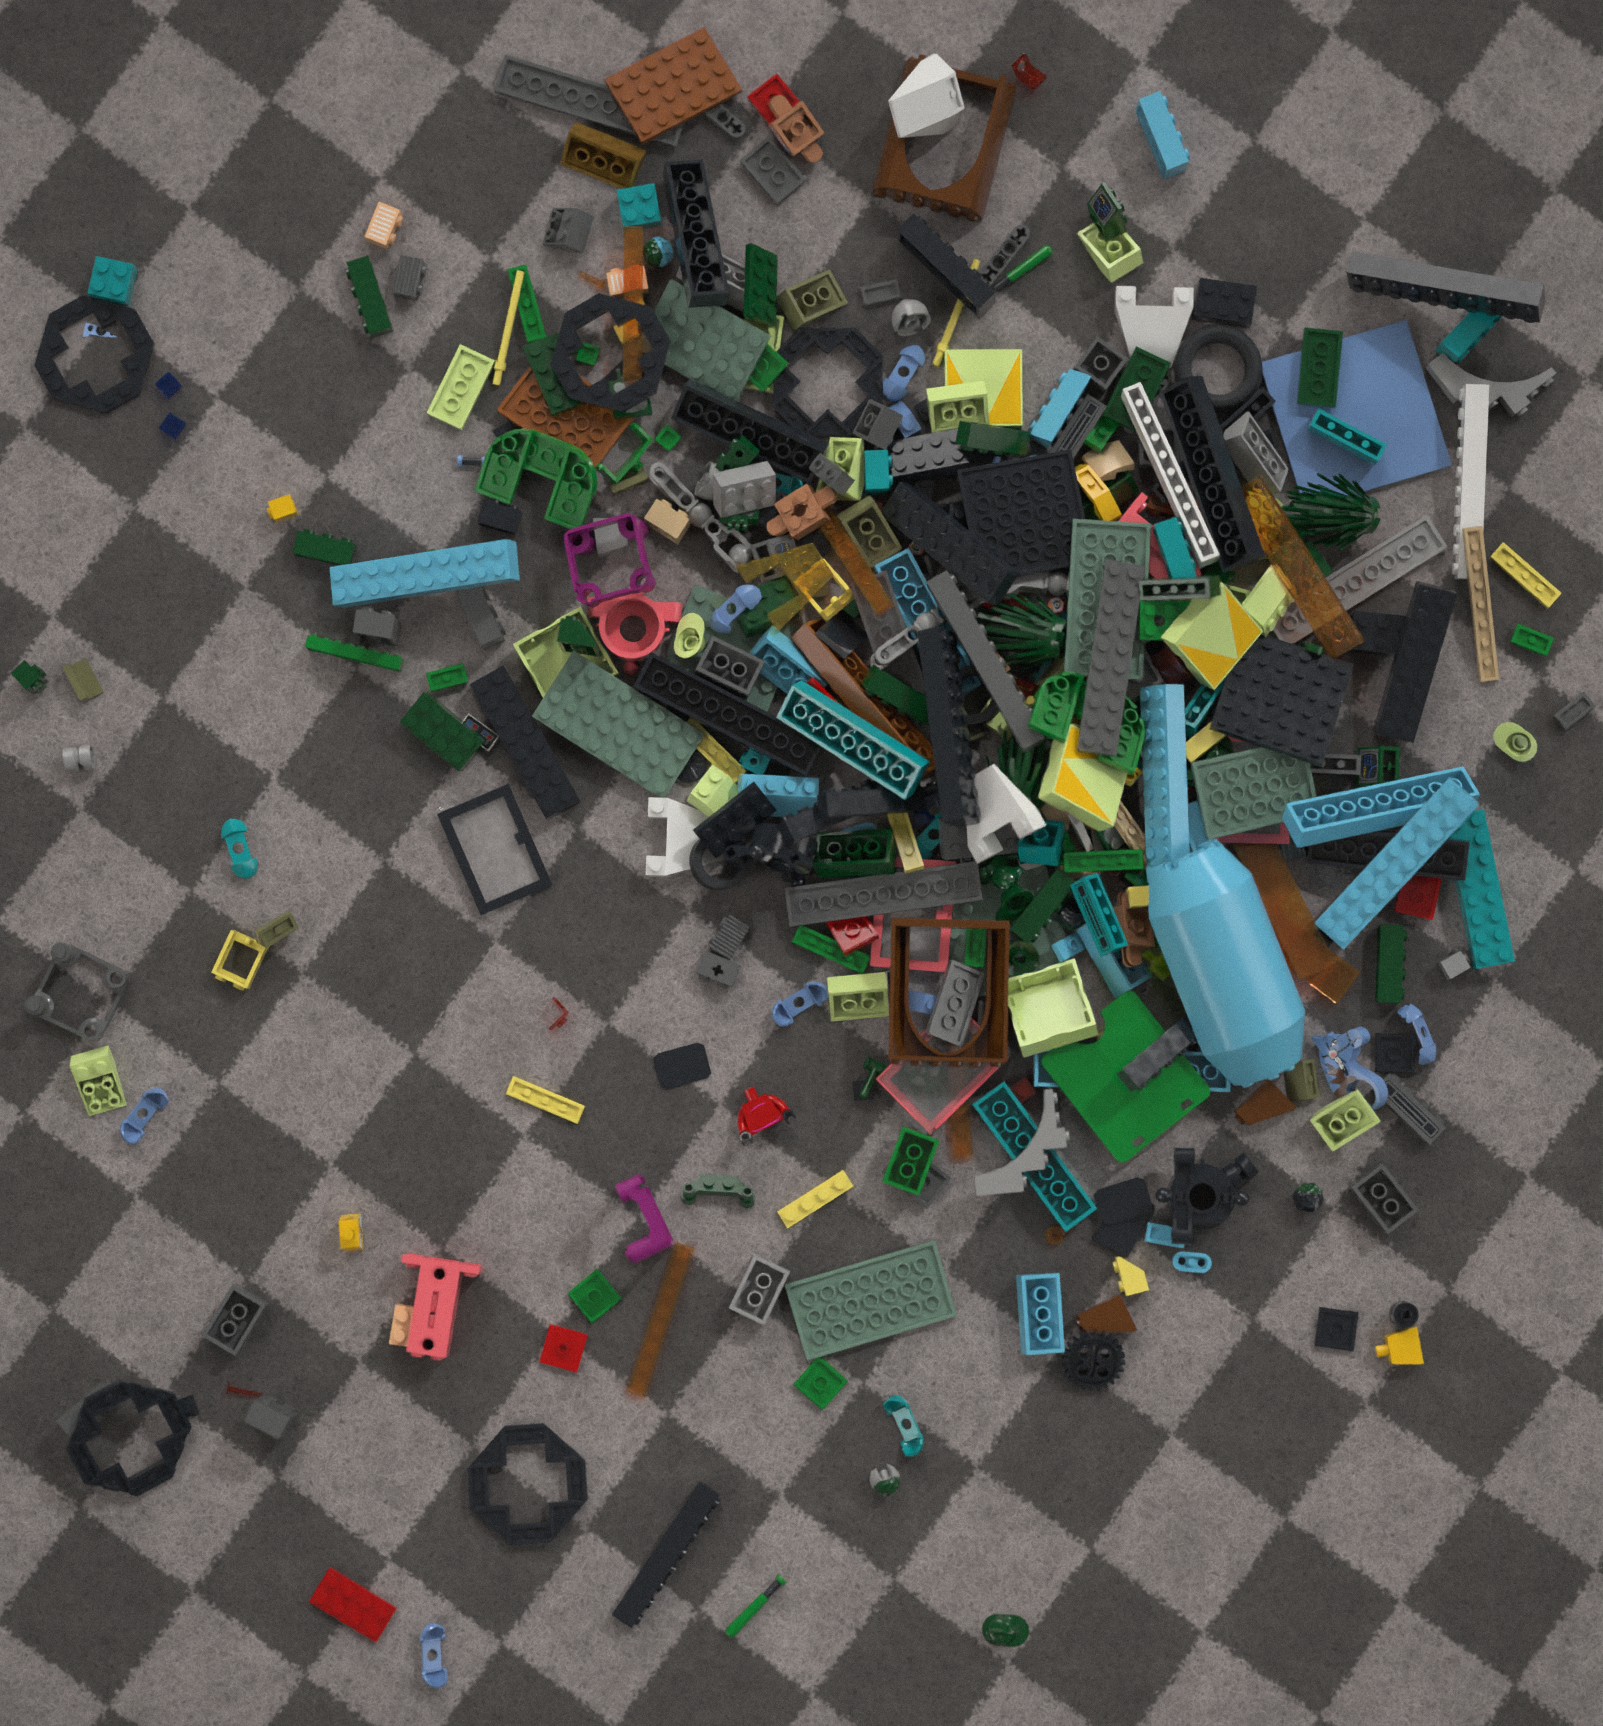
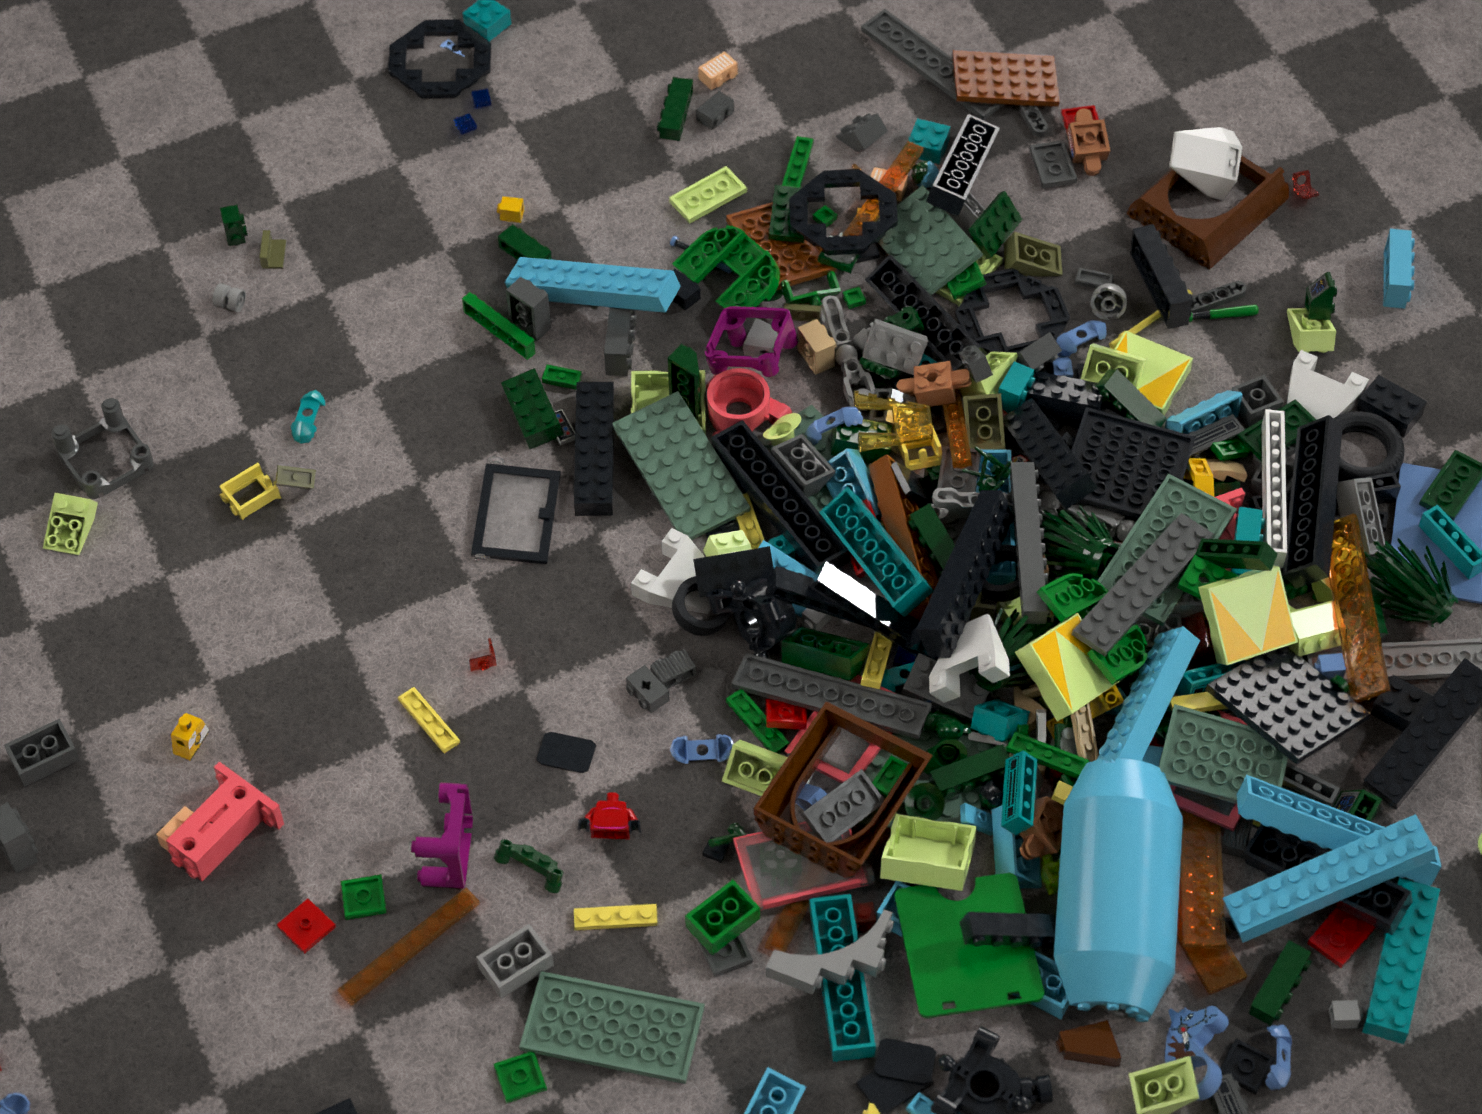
camera: 30 degrees right, 30 degrees down
(132, 1126) = (70, 570): medium blue piece -> none
(500, 364) = (749, 194): light yellow bar -> none
(559, 1511) = (205, 1061): black plate -> none
(602, 156) = (919, 97): pearl gold slope -> none
(911, 583) = (995, 469): none -> dark green plant
(912, 605) = (990, 483): none -> dark green plant
(1059, 1235) = (821, 1054): clear orange plate -> none
(1297, 631) = (1330, 665): none -> medium blue brick
(1302, 1081) = (1140, 1042): olive panel -> none

